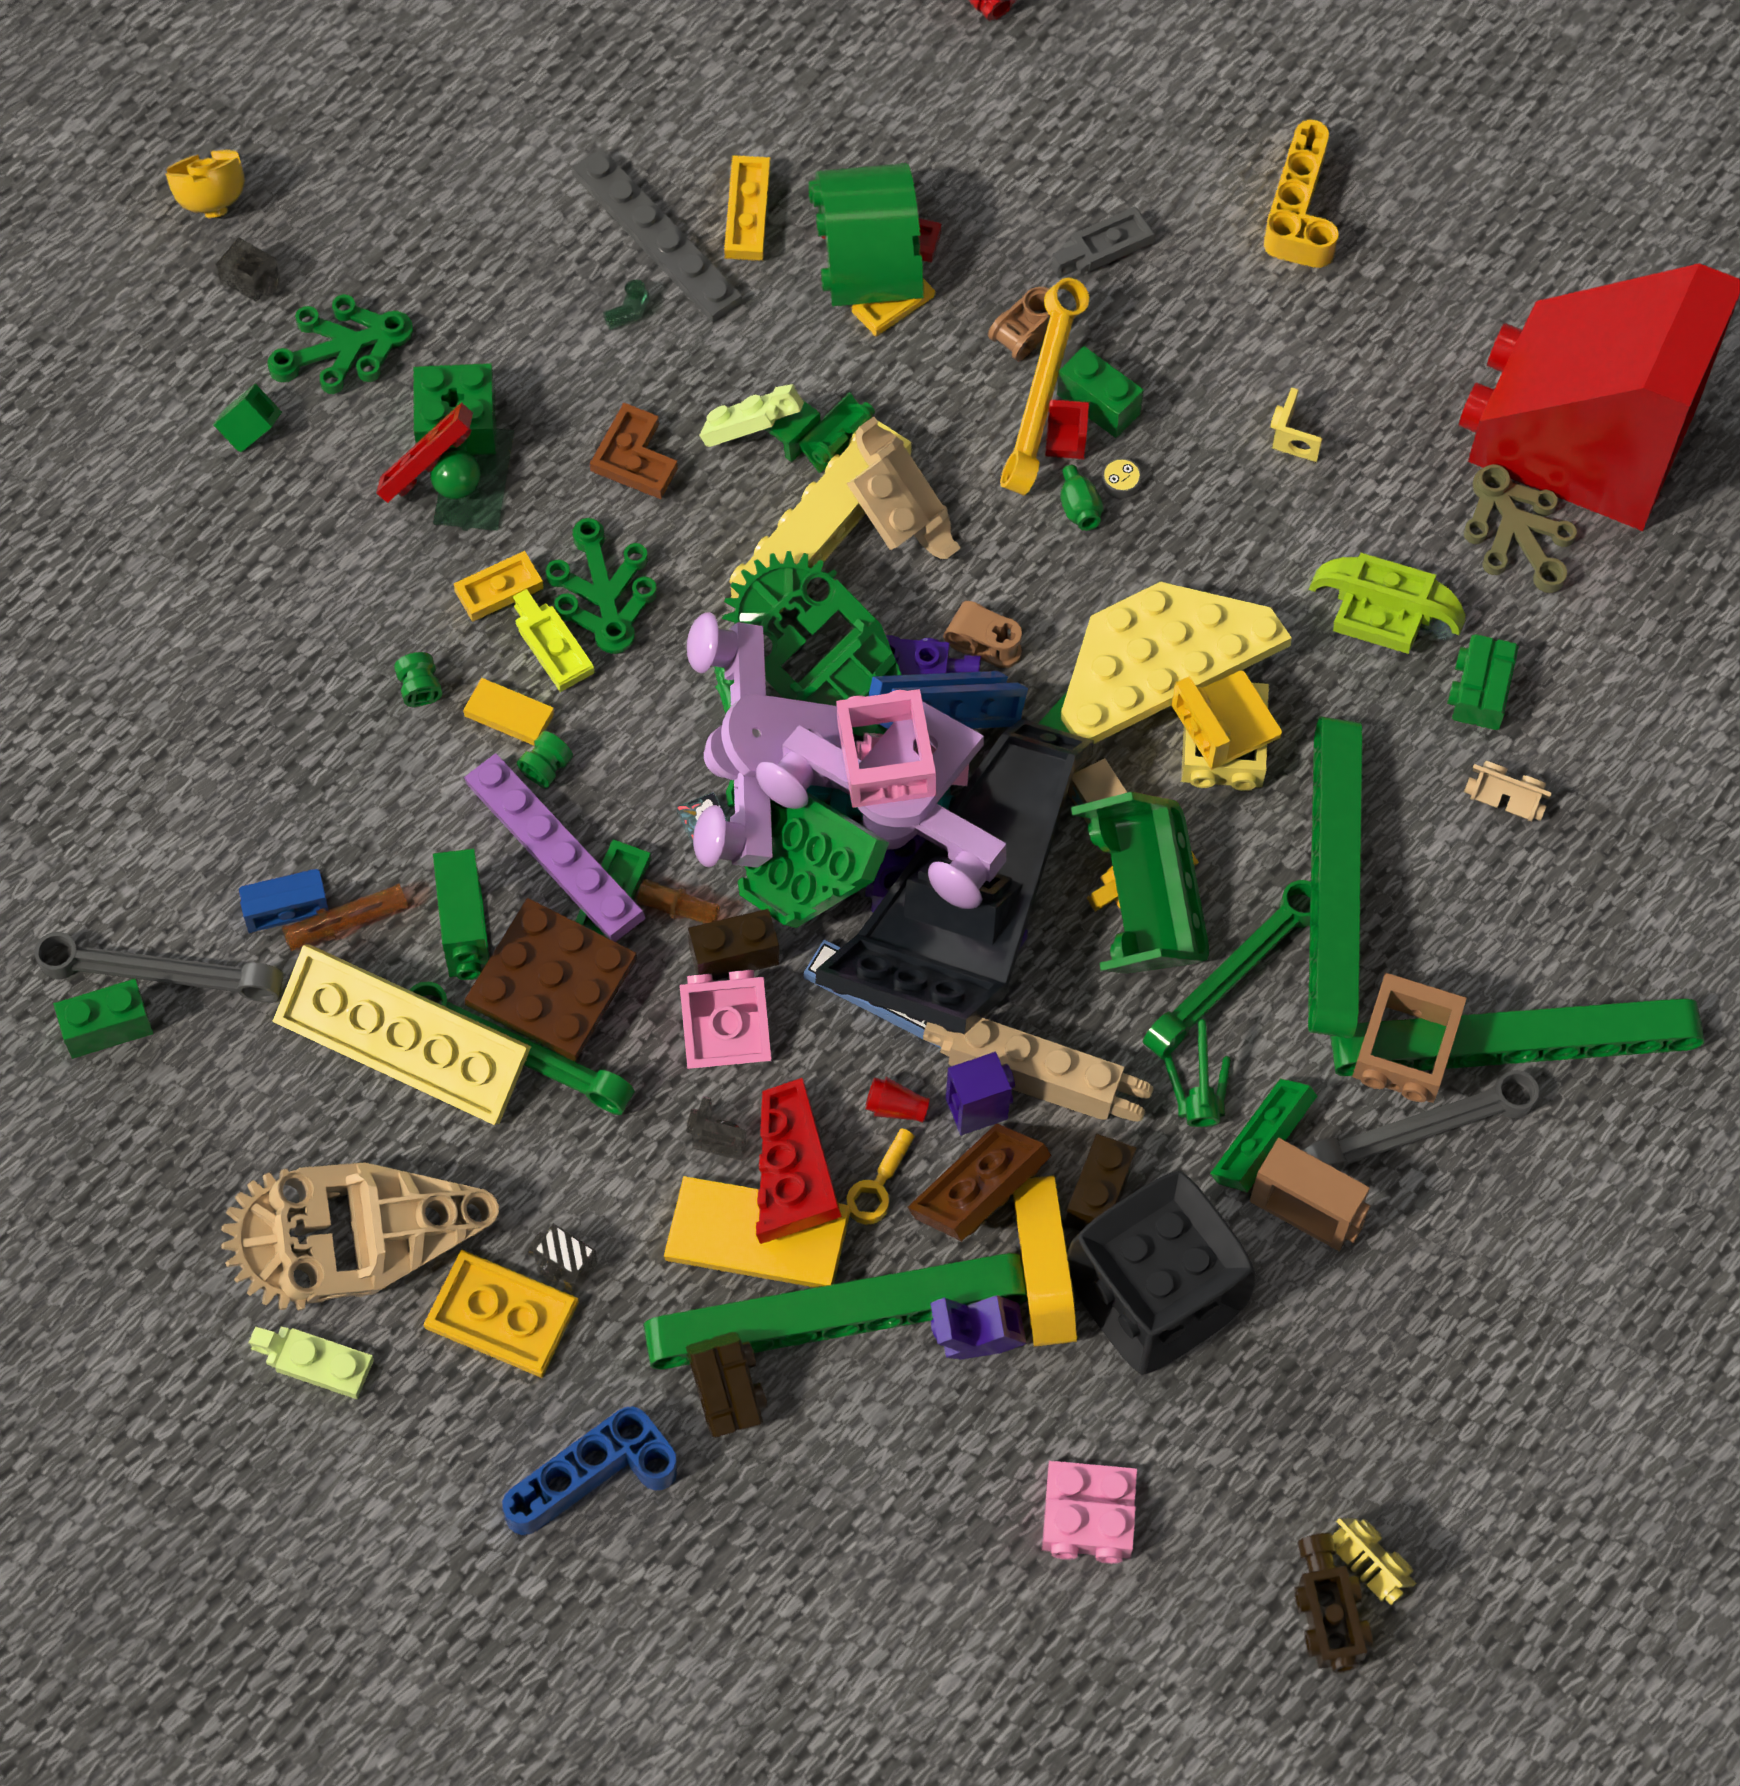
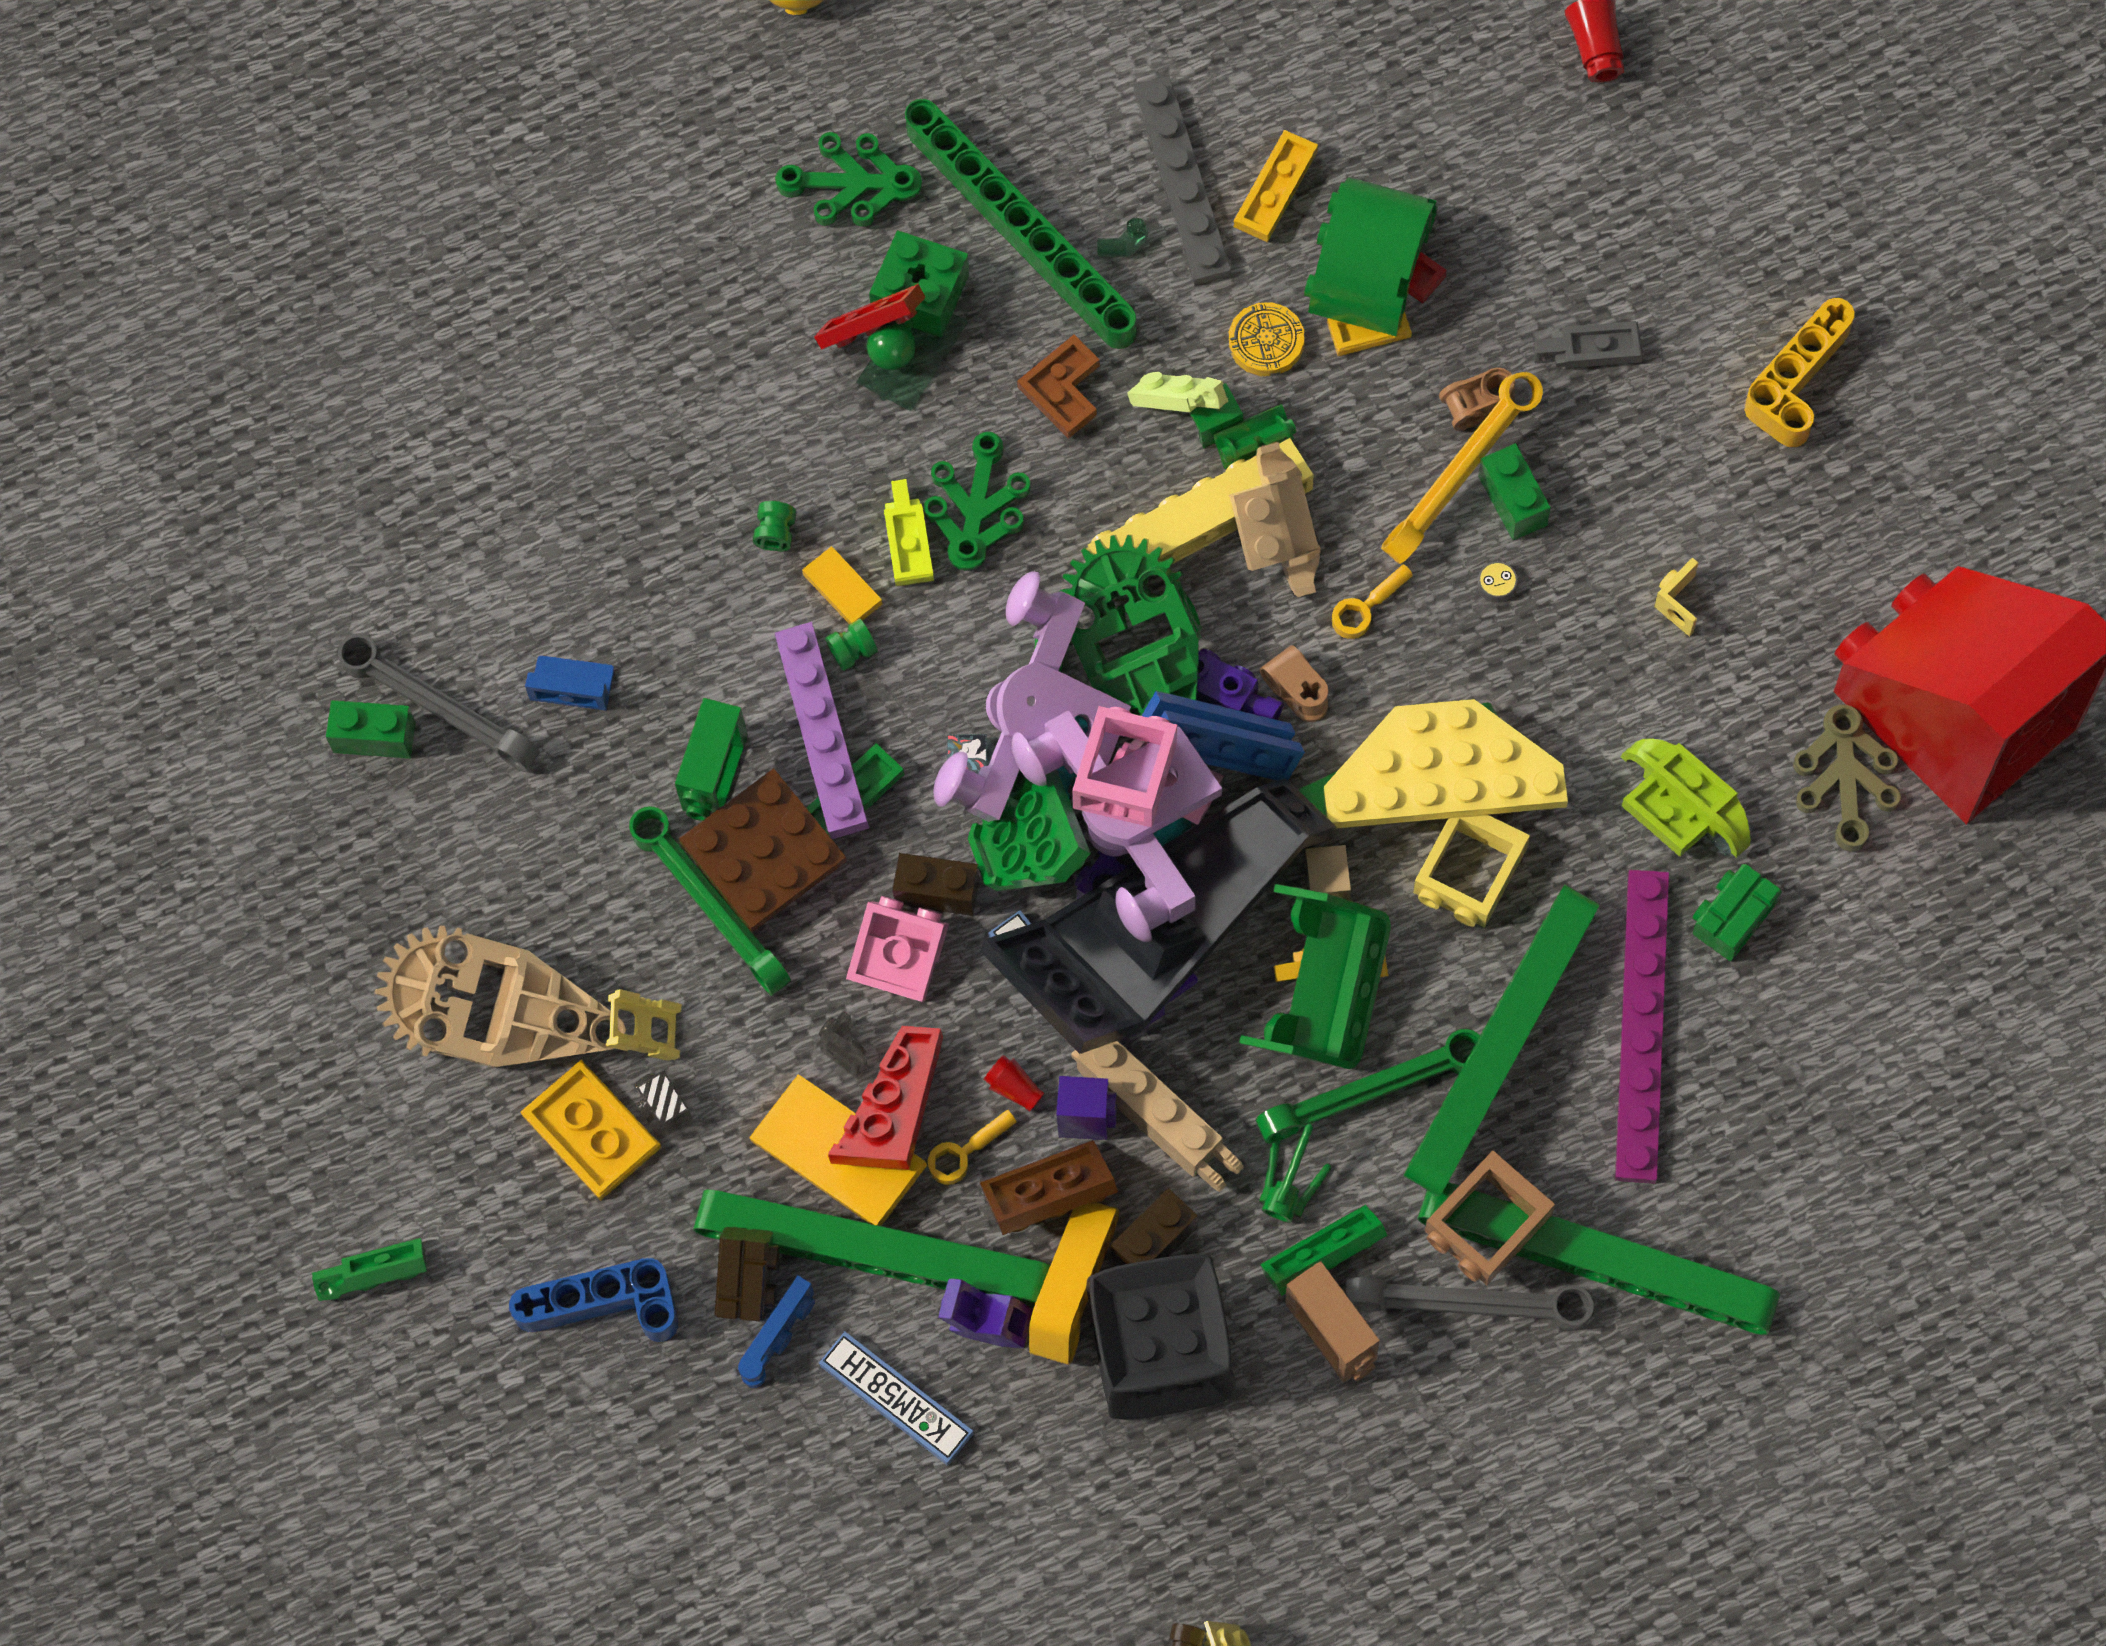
camera: 30 degrees right, 5 degrees up
(247, 418) = (735, 220): green panel -> none
(248, 270) = (797, 69): clear smoke brick -> none
(298, 935) = (568, 720): clear orange pin -> none
(314, 1359) = (417, 1104): yellowish green hinge -> none
(343, 1538) = (370, 1269): none -> green hinge
(401, 1034) = (614, 847): light yellow plate -> none
(497, 585) = (884, 463): yellow plate -> none
(506, 1175) = (643, 1011): none -> light yellow piece
(537, 336) = (1026, 238): none -> green beam
(676, 902) = (907, 824): clear orange axle -> none
(780, 1431) = (775, 1332): none -> blue plate
(803, 344) = (1266, 339): none -> yellow tile
(924, 1444) = (896, 1398): none -> tile
(1011, 546) = (1376, 597): none -> yellow piece
(1067, 429) = (1467, 516): red panel -> none
(1080, 499) = (1448, 588): green plant -> none
(1089, 1511) = (1008, 1518): bright pink plate -> none
(1224, 717) = (1470, 852): yellow bracket -> none
(1450, 819) = (1642, 1027): none -> magenta plate
(1523, 794) = (1719, 1033): tan hinge -> none

